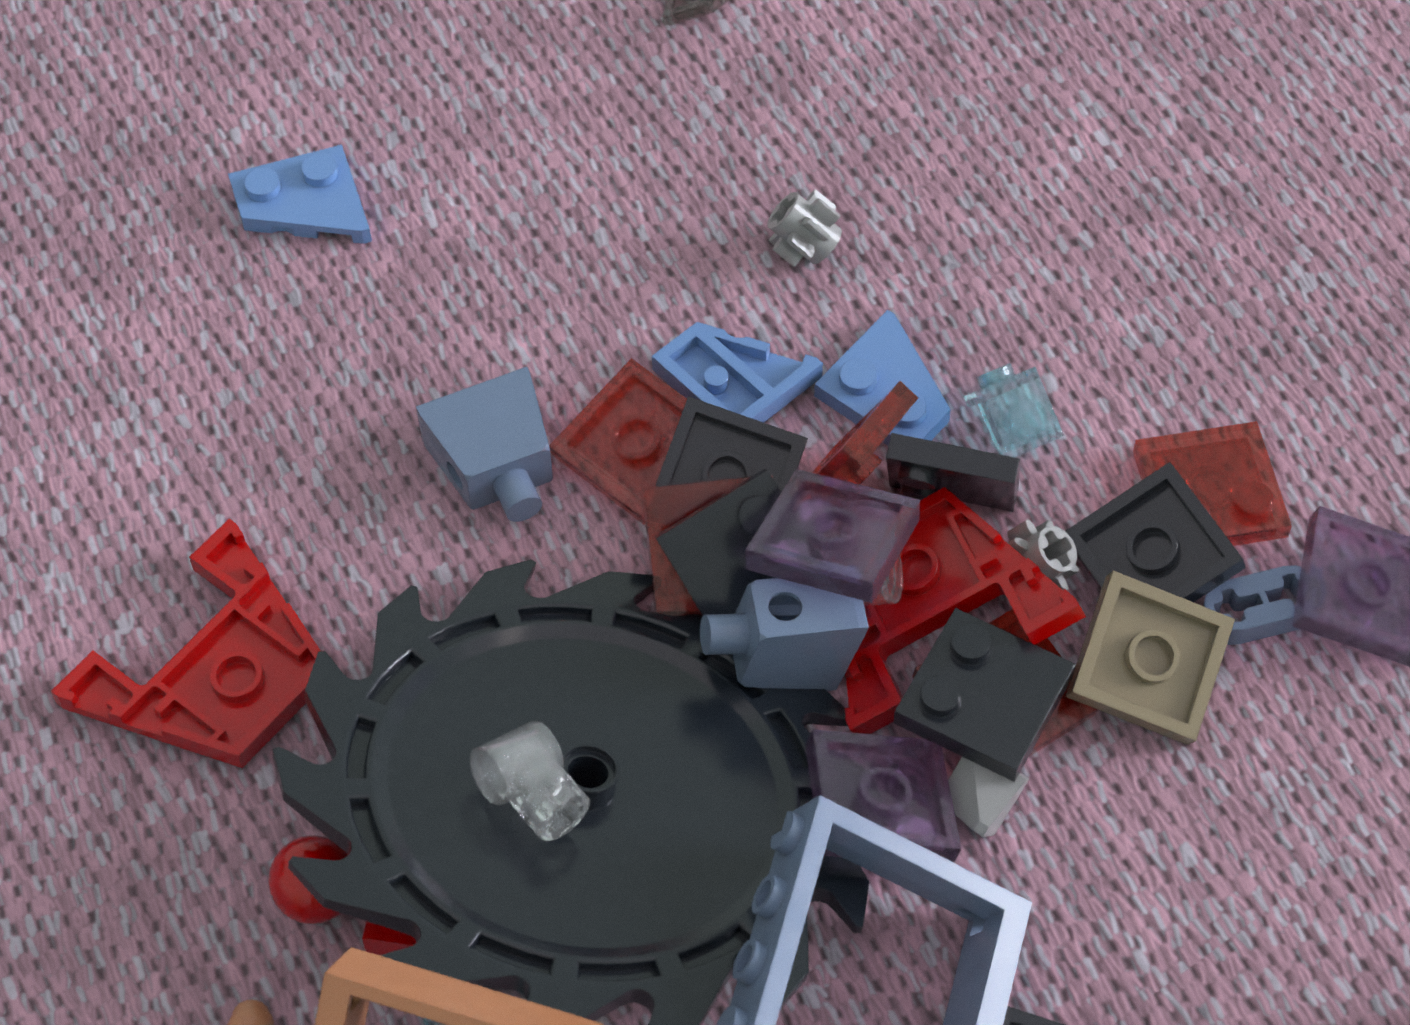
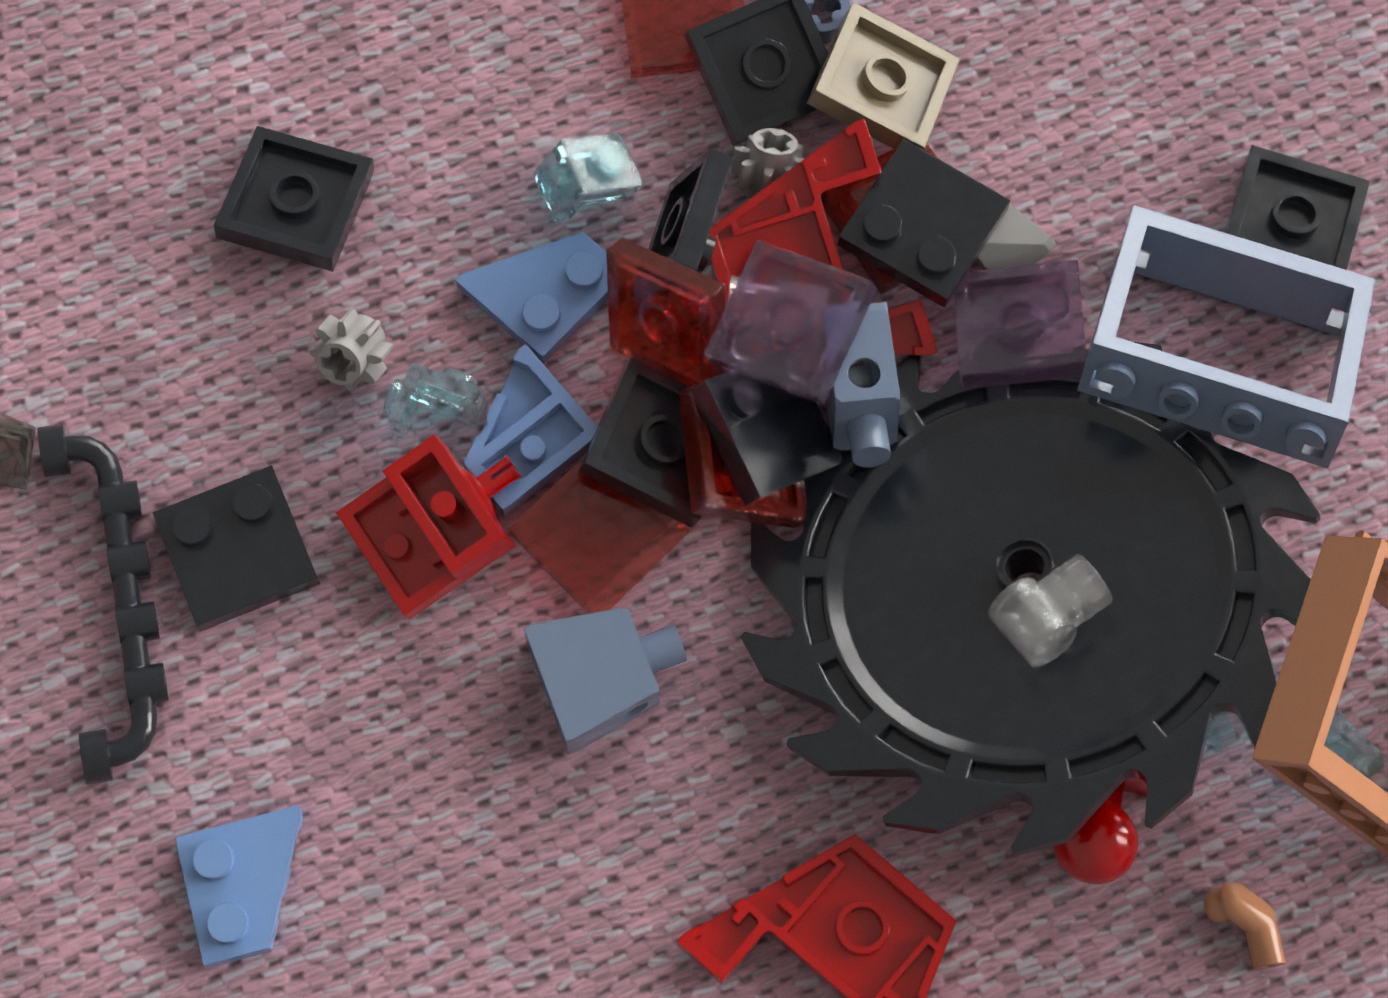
camera: 90 degrees left, 15 degrees up
(612, 170) = (235, 548): none -> black plate
(636, 300) = (429, 524): none -> red plate
(692, 31) = (135, 620): none -> black bar
(765, 285) = (445, 394): none -> clear light blue bracket
(958, 181) = (294, 198): none -> black plate

